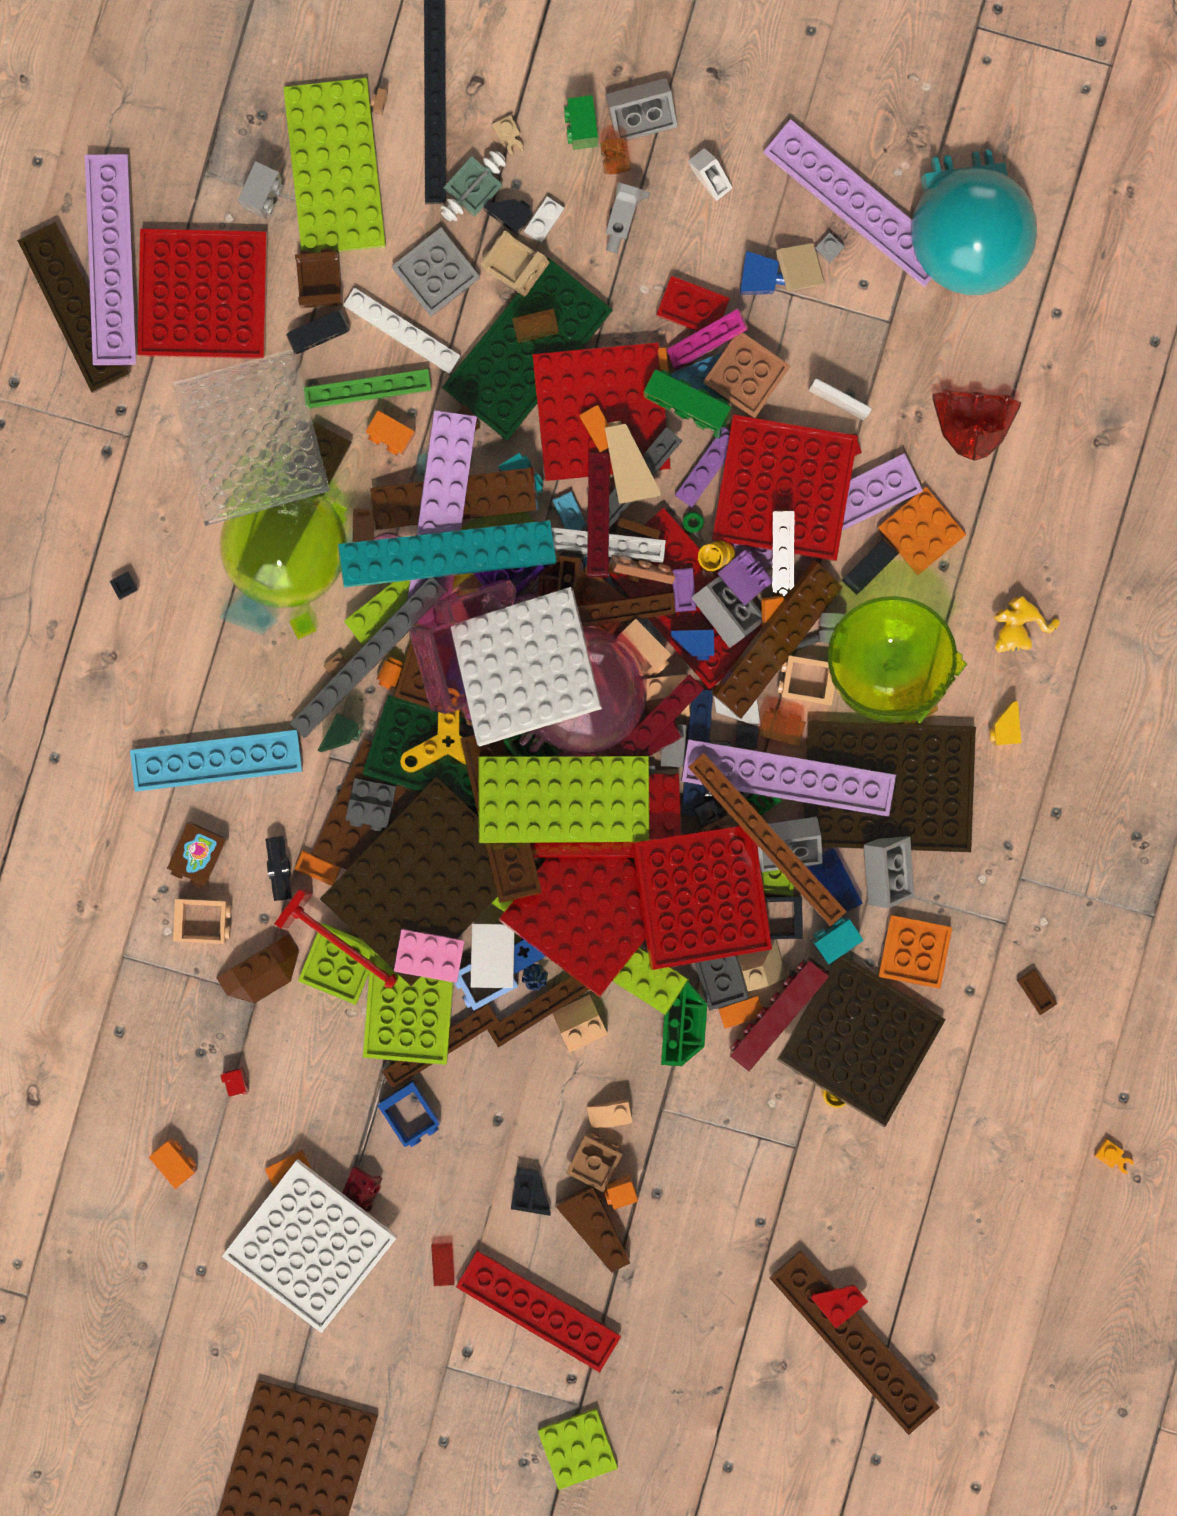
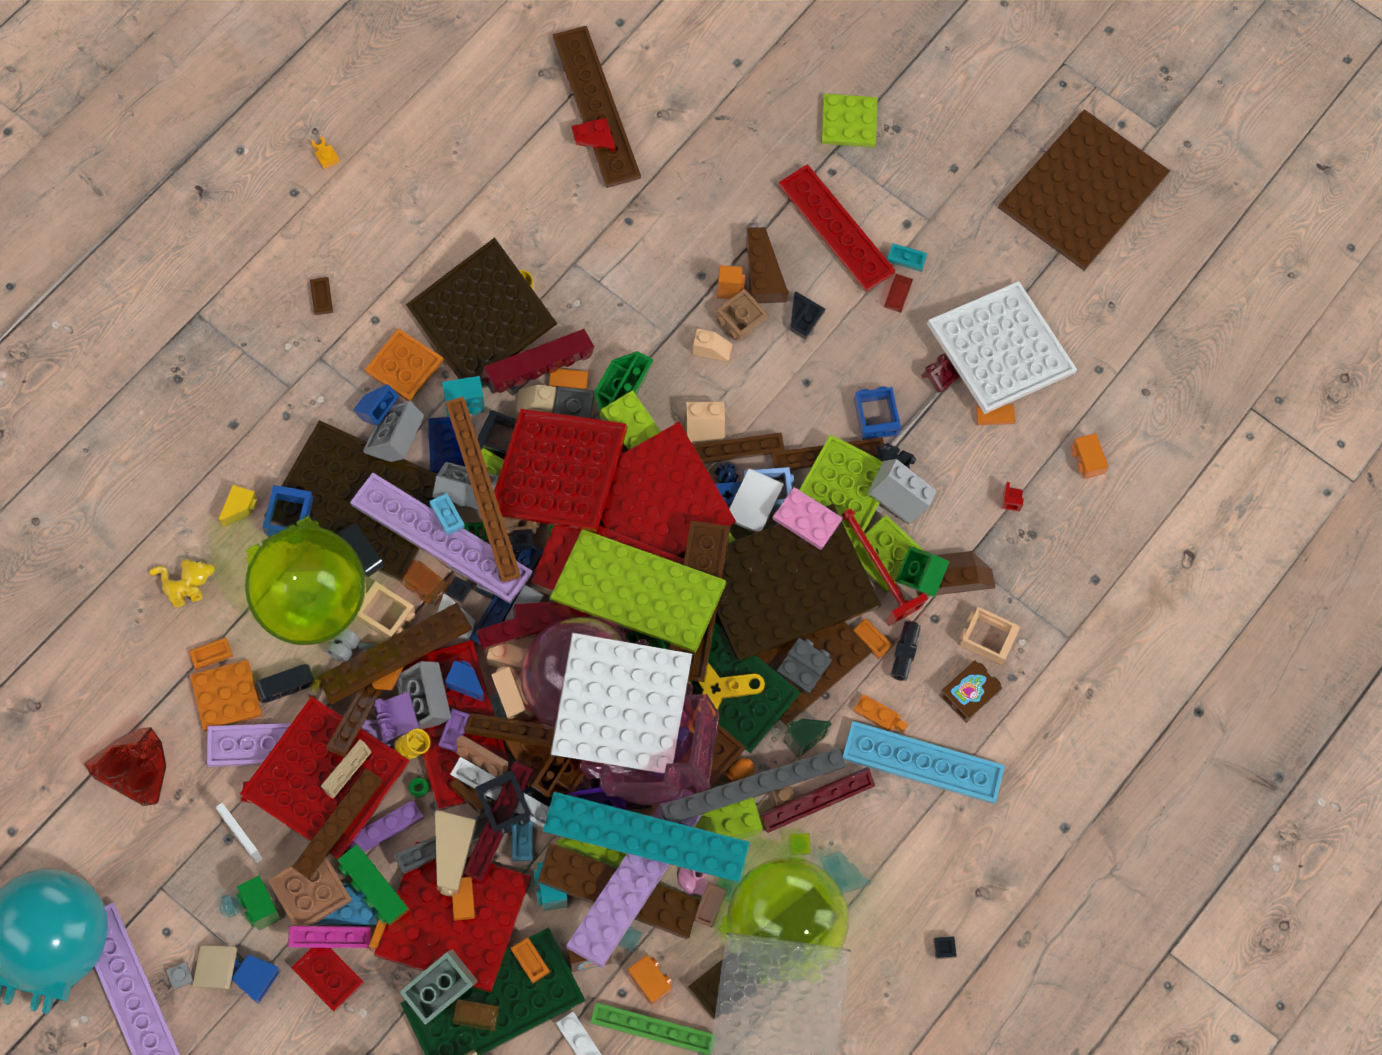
camera: 160 degrees left, 20 degrees down
(279, 792) = (879, 714): none -> orange hinge
(293, 954) = (922, 571): none -> green brick
(303, 677) = (817, 799): none -> dark red tile
(348, 1033) = (901, 490): none -> light grey slope
(370, 1069) = (890, 452): none -> black hinge
(450, 1309) = (907, 257): none -> teal plate
(509, 401) = (530, 960): none -> orange tile
(581, 333) = (438, 986): none -> sand green brick
(611, 548) = (496, 783): none -> black window
(750, 446) = (337, 824): none -> reddish brown plate
(766, 500) = (346, 769): none -> tan tile
(788, 341) = (258, 902): none -> green brick
(792, 801) = (447, 514): none -> medium azure plate
(815, 330) = (229, 906): none -> clear light blue plate
(836, 570) = (315, 690): none -> reddish brown tile
(861, 731) = (367, 554): none -> black beam
(921, 893) = (376, 404): none -> blue slope
(956, 757) = (290, 495): none -> blue window
(957, 566) = (211, 653): none -> orange tile

